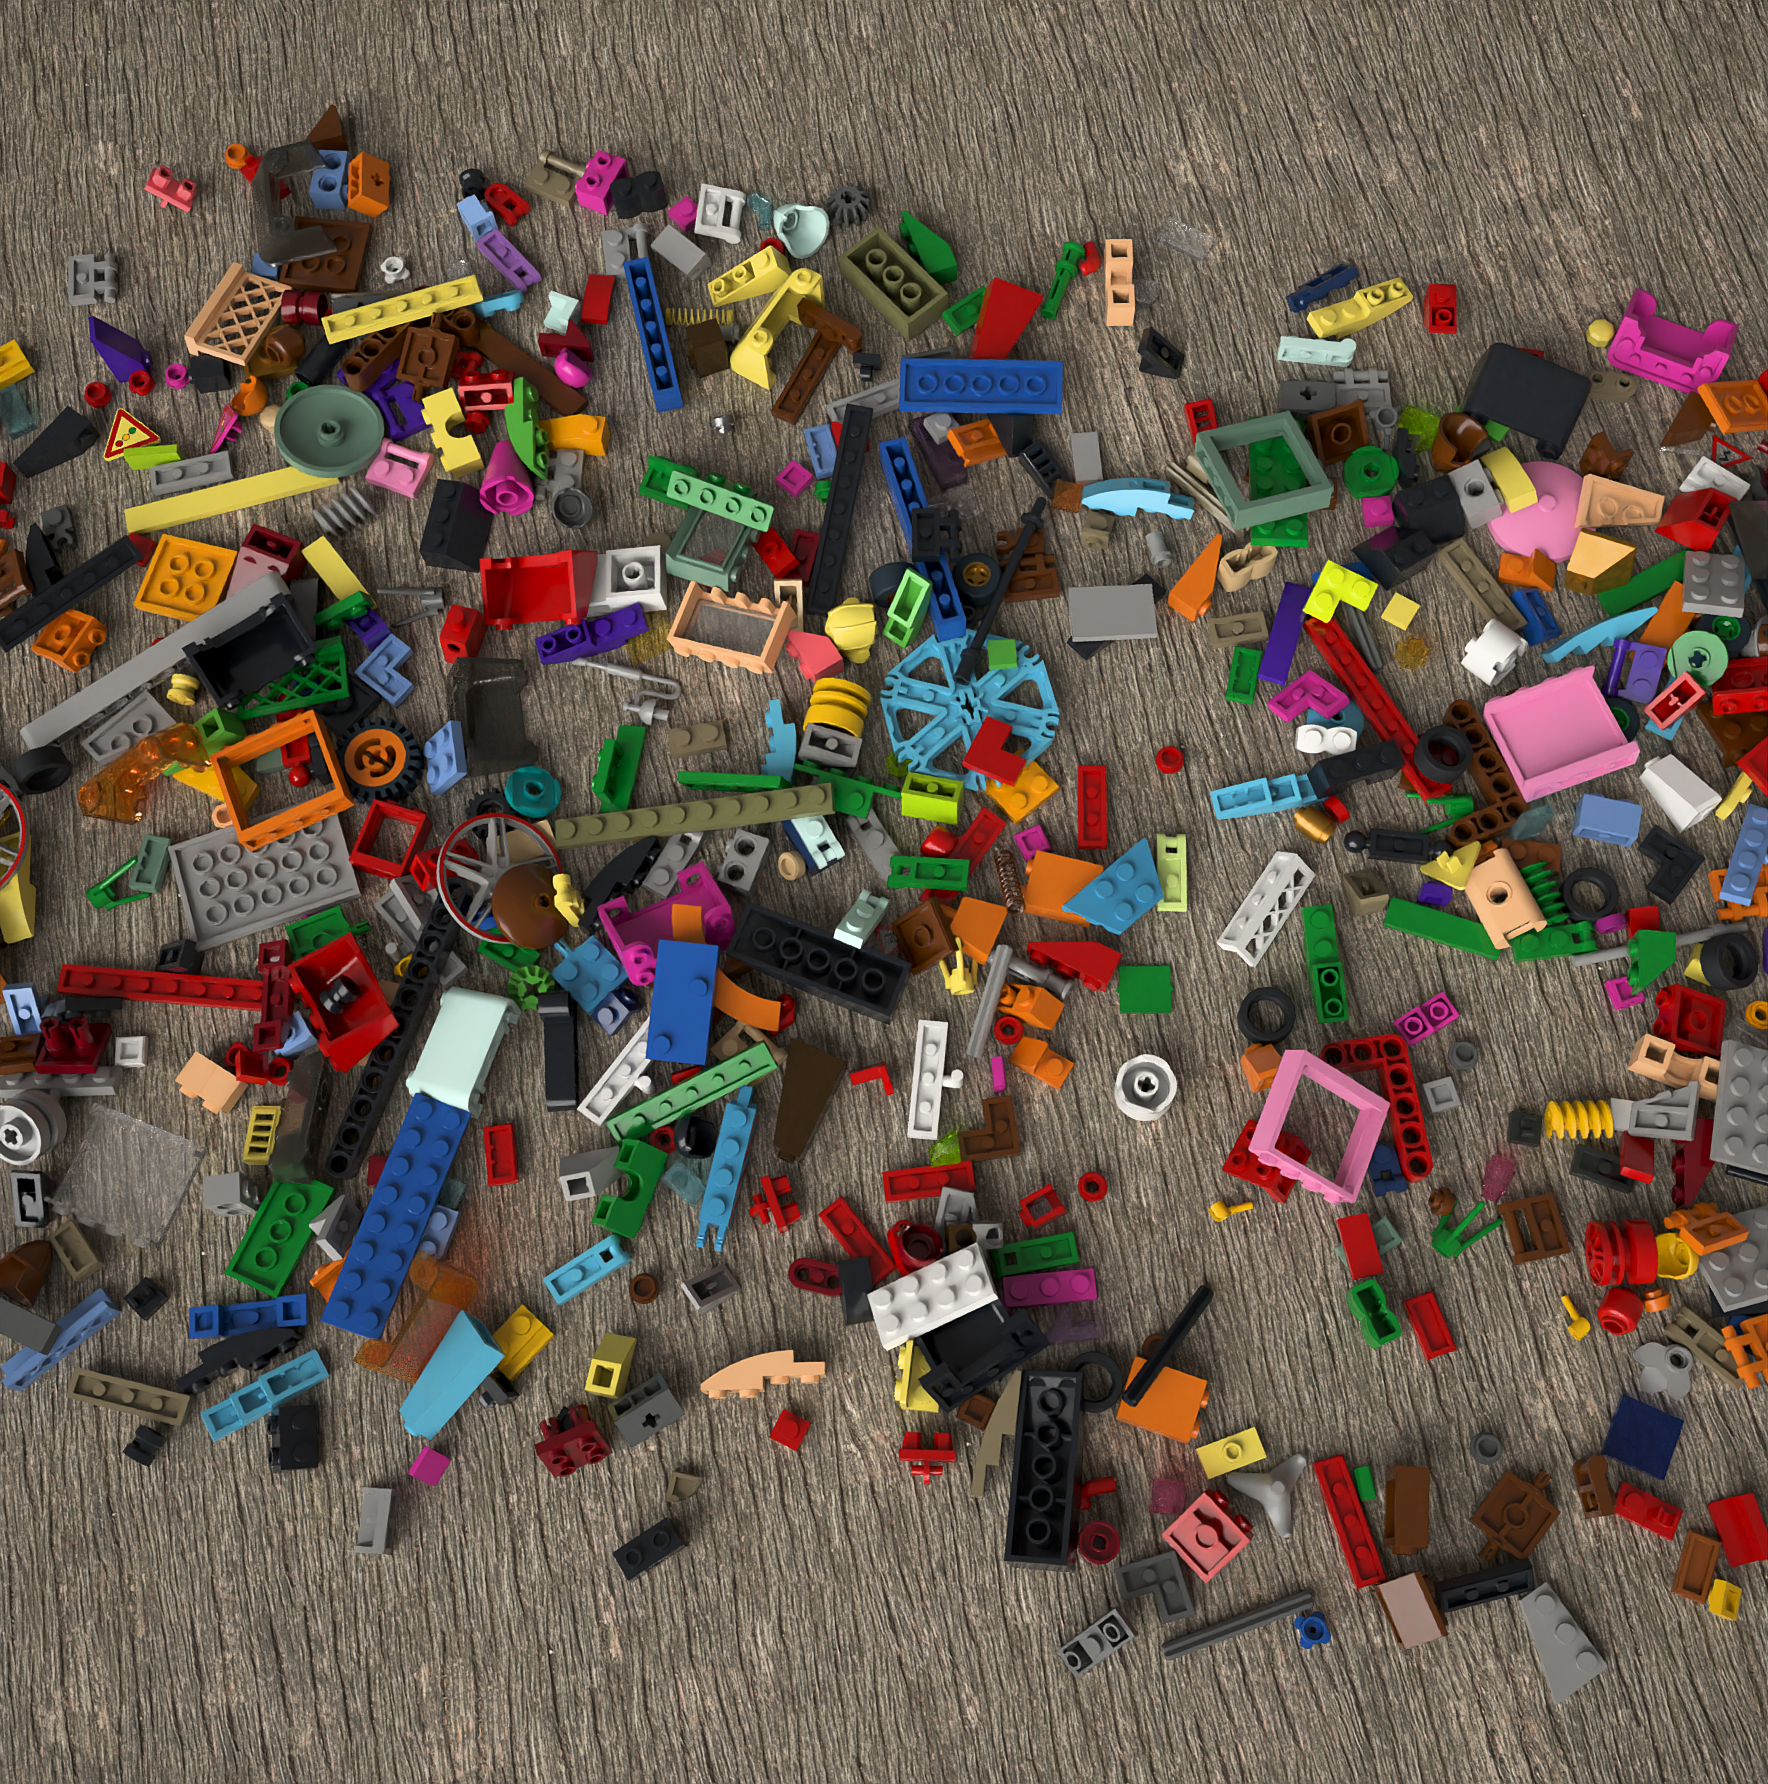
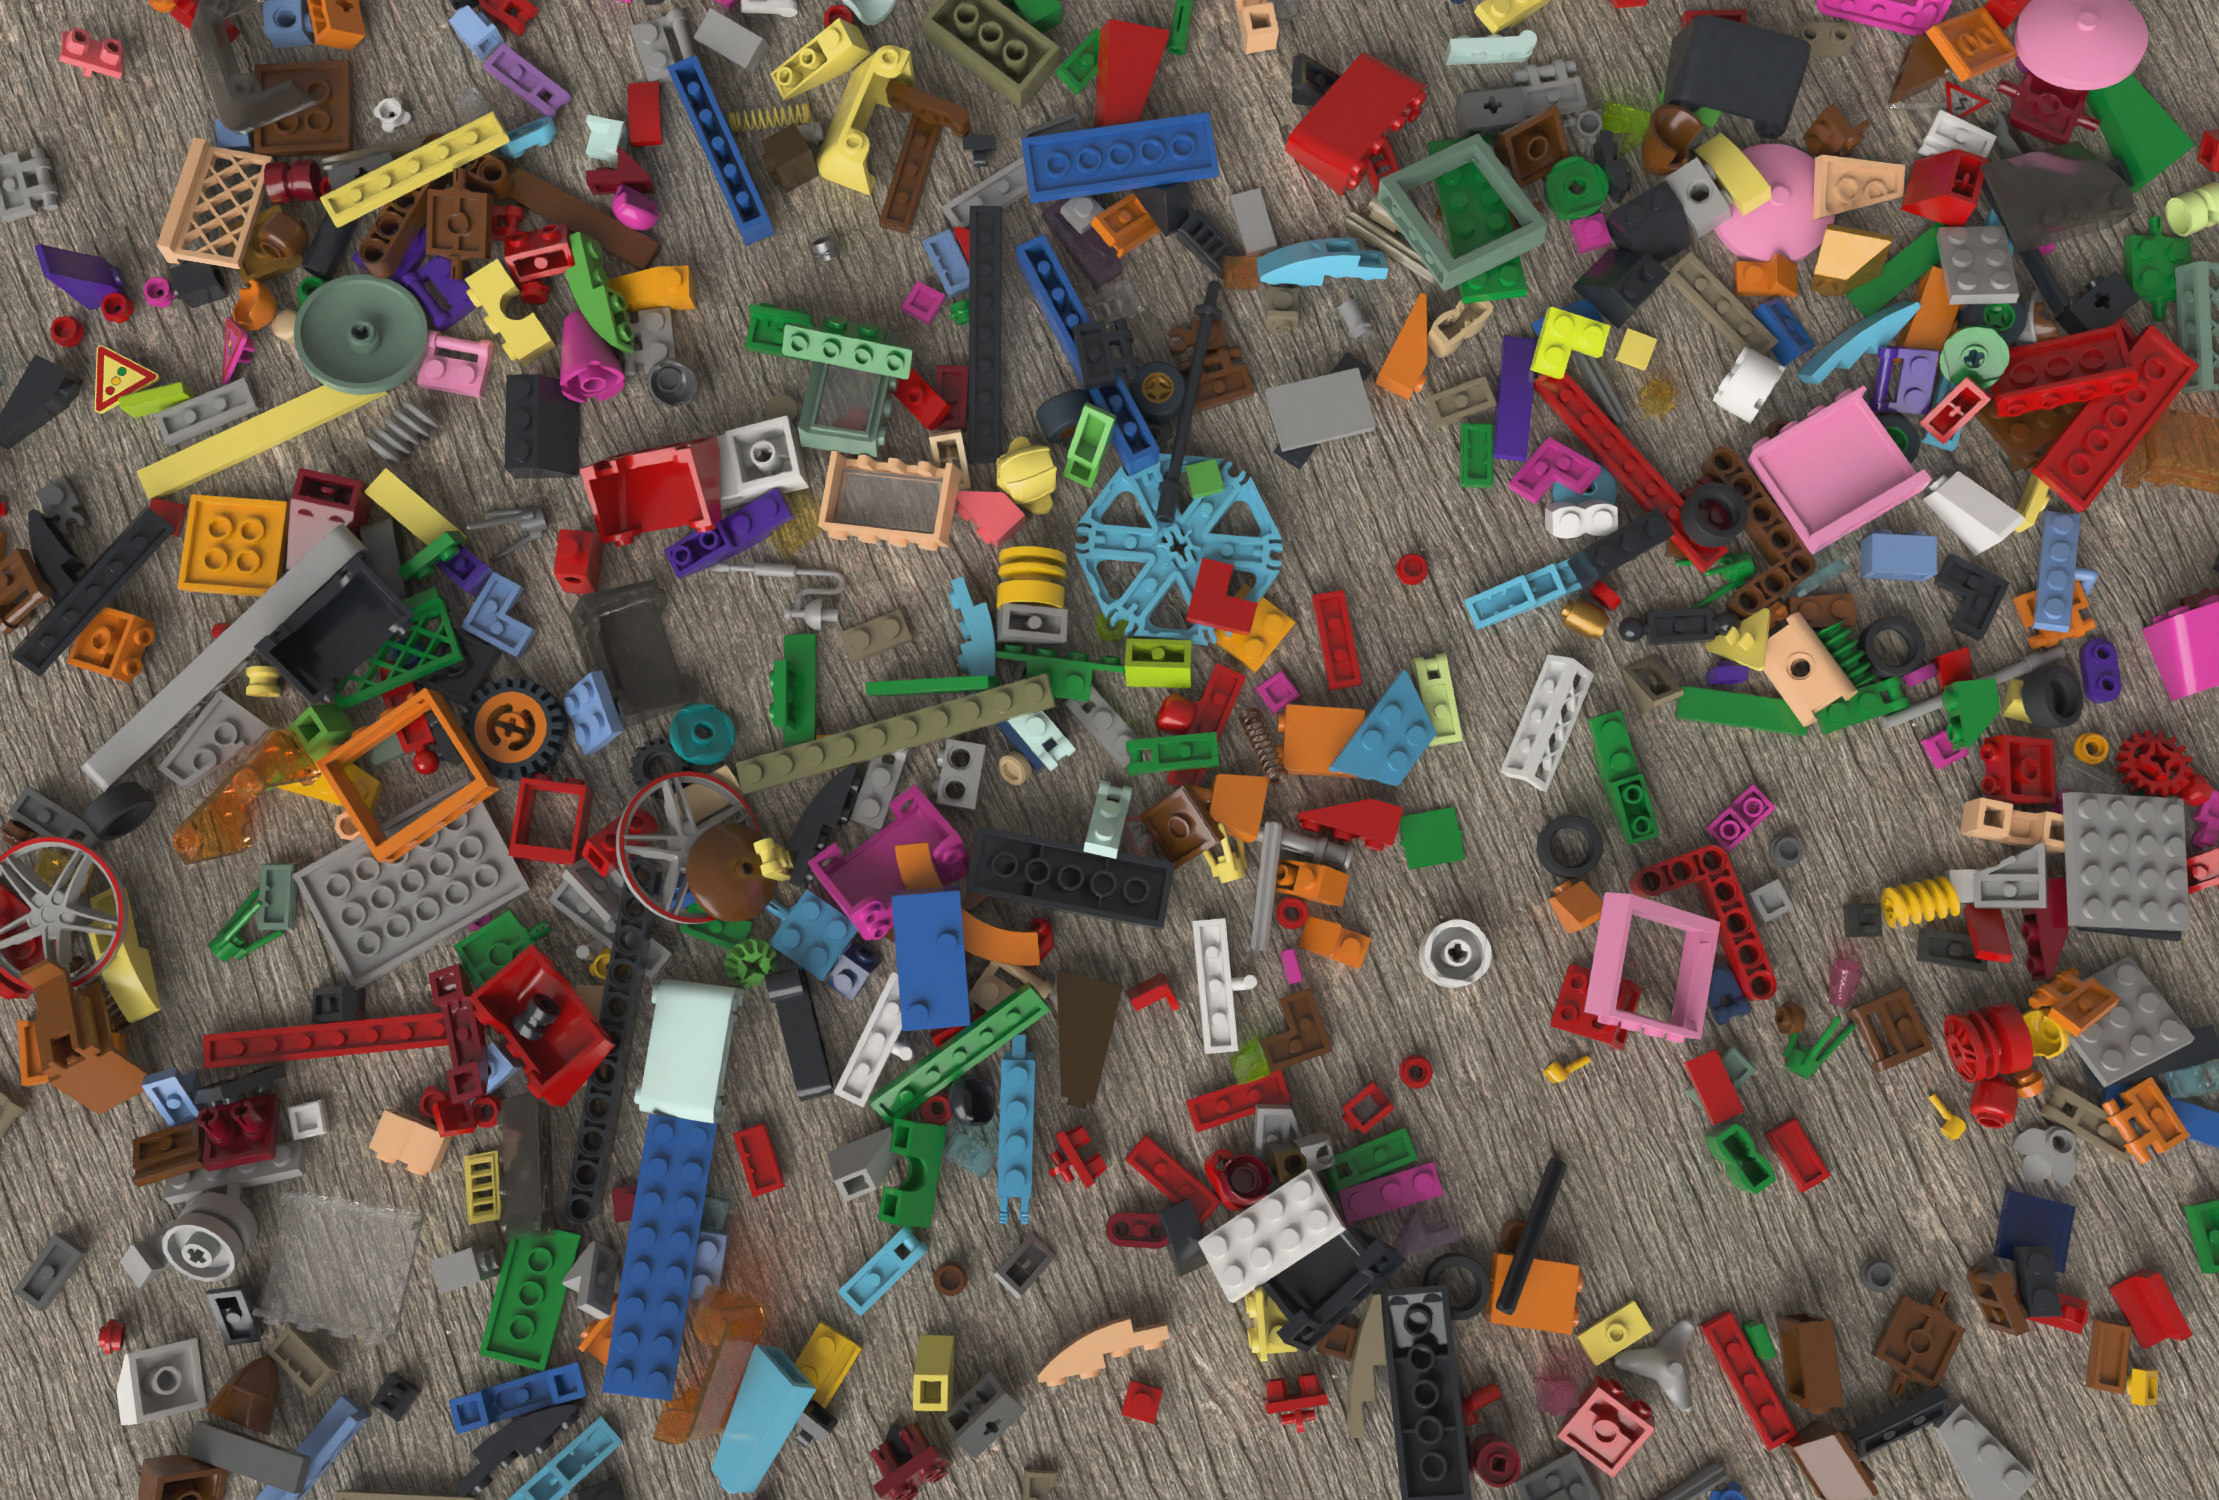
camera: 20 degrees left, 10 degrees up
(1187, 389) = (1355, 121): none -> red windscreen
(1633, 1475) = (2037, 1280): none -> black brick

